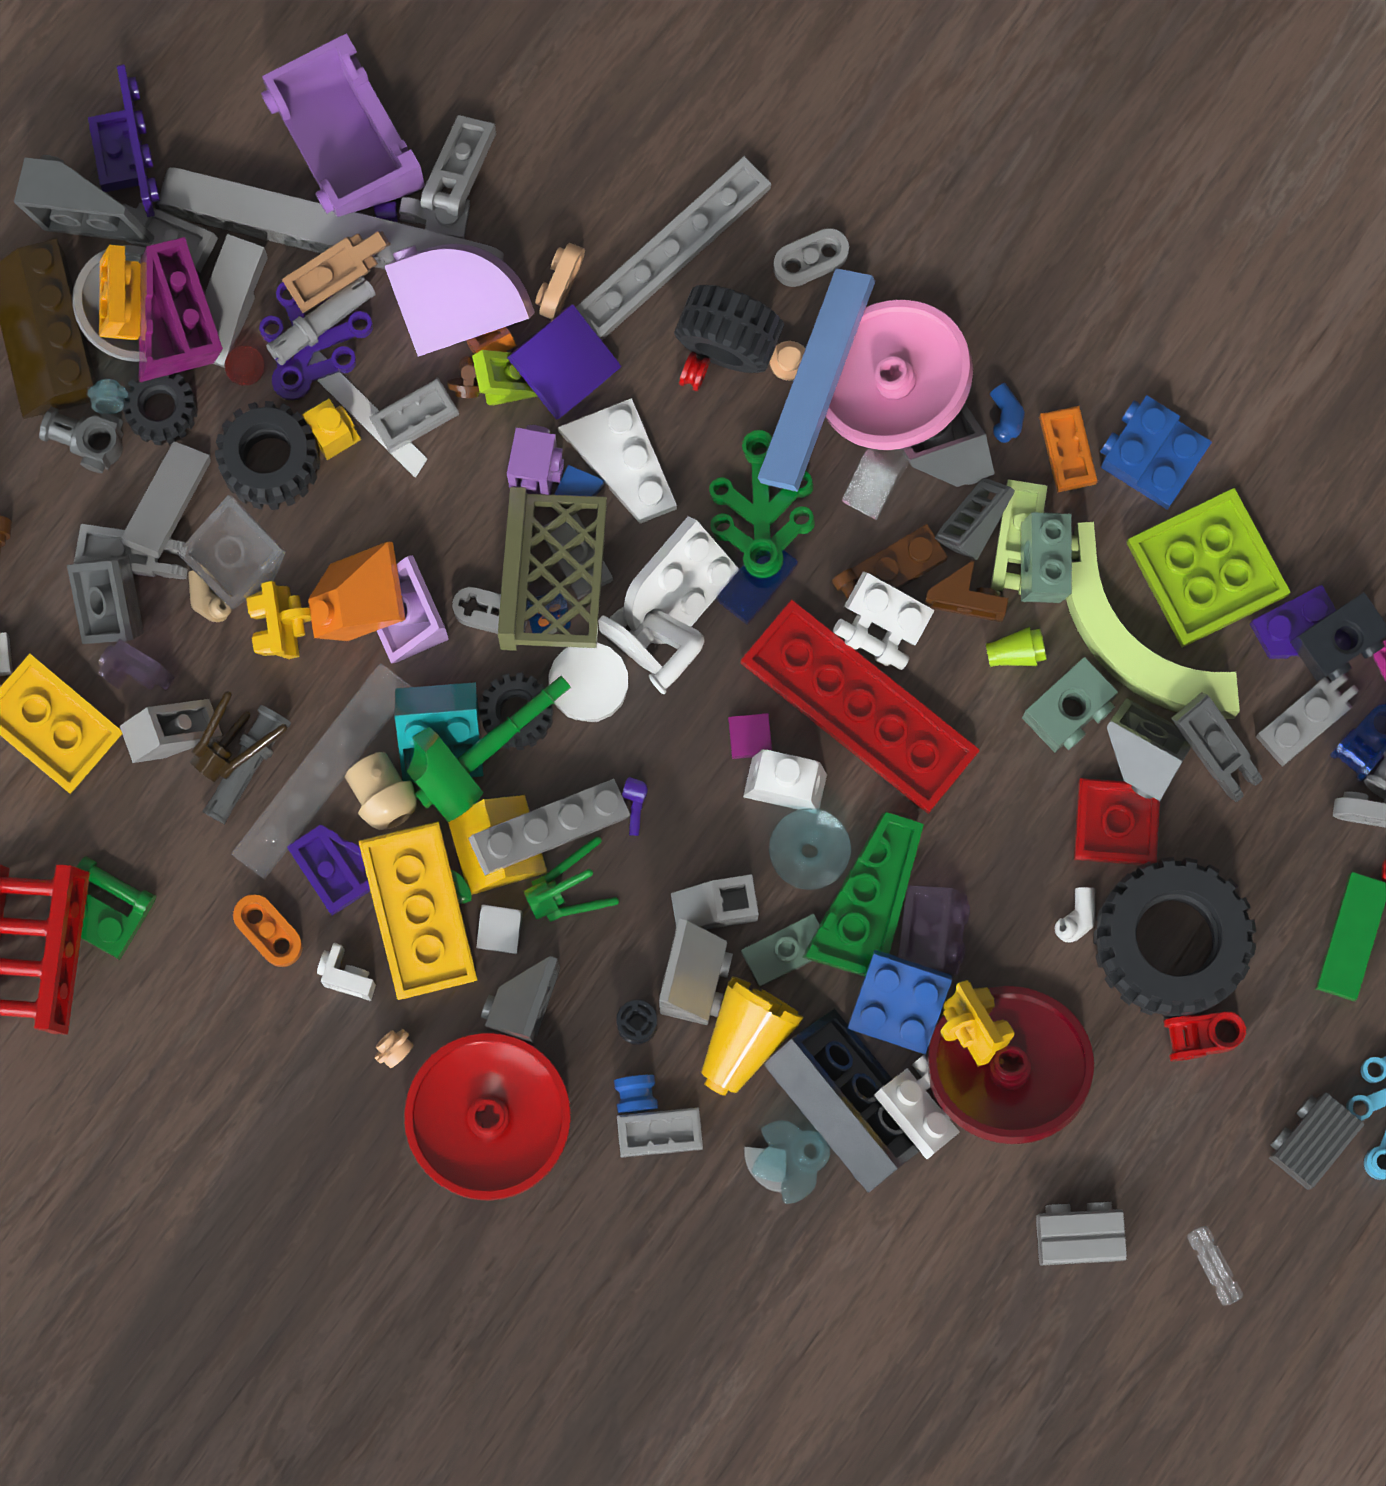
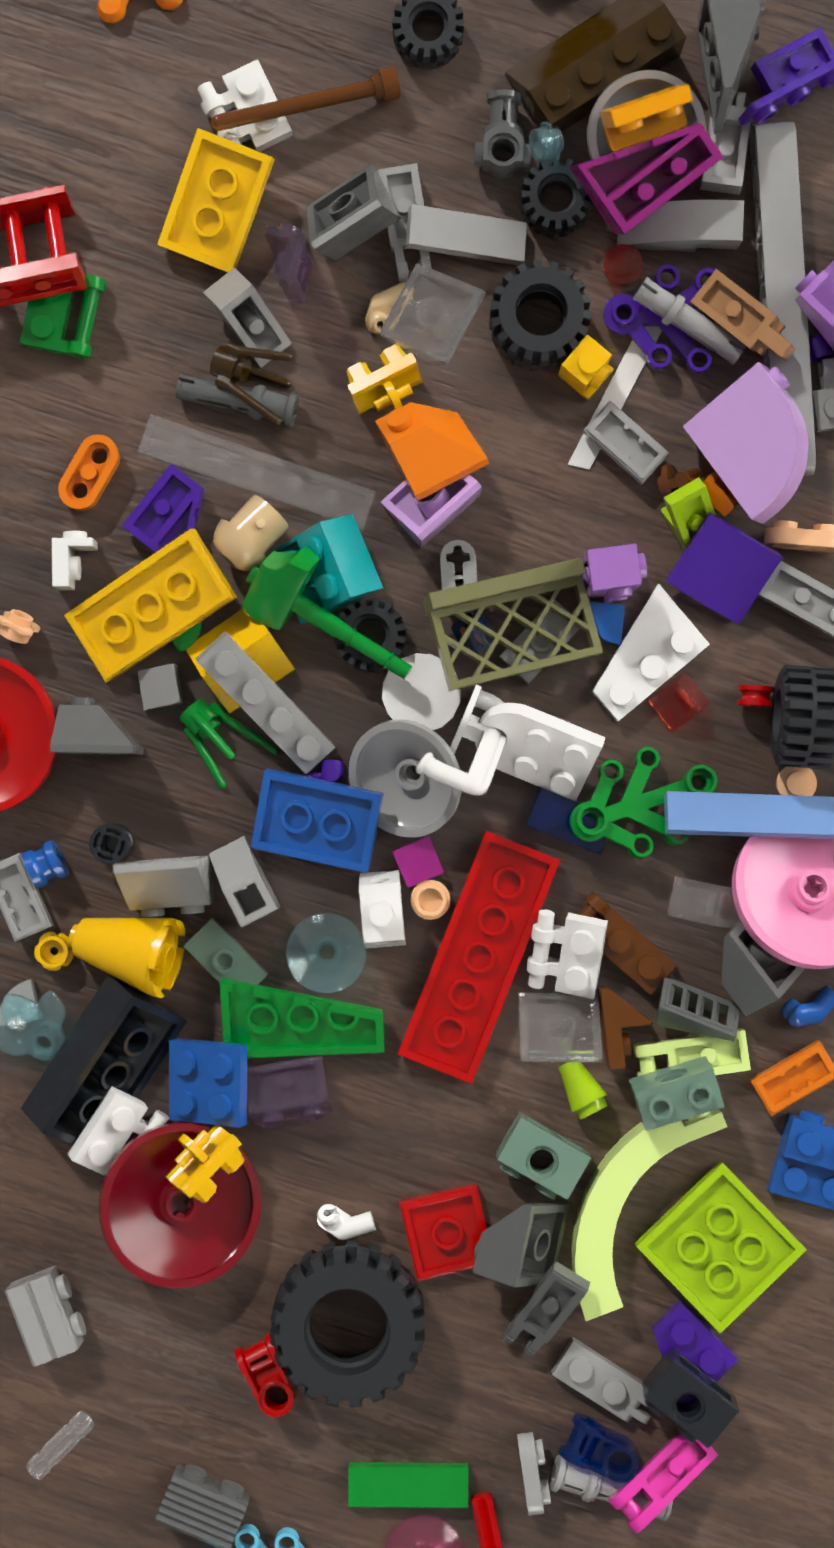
camera: 70 degrees right, 10 degrees up
(666, 742) = (384, 764): none -> light grey dish
(677, 444) = (679, 702): none -> clear red slope
(678, 816) = (317, 820): none -> blue plate
(735, 1117) = (46, 958): none -> yellow plate
(790, 735) = (430, 899): none -> light nougat plate
(951, 652) = (558, 1028): none -> clear slope

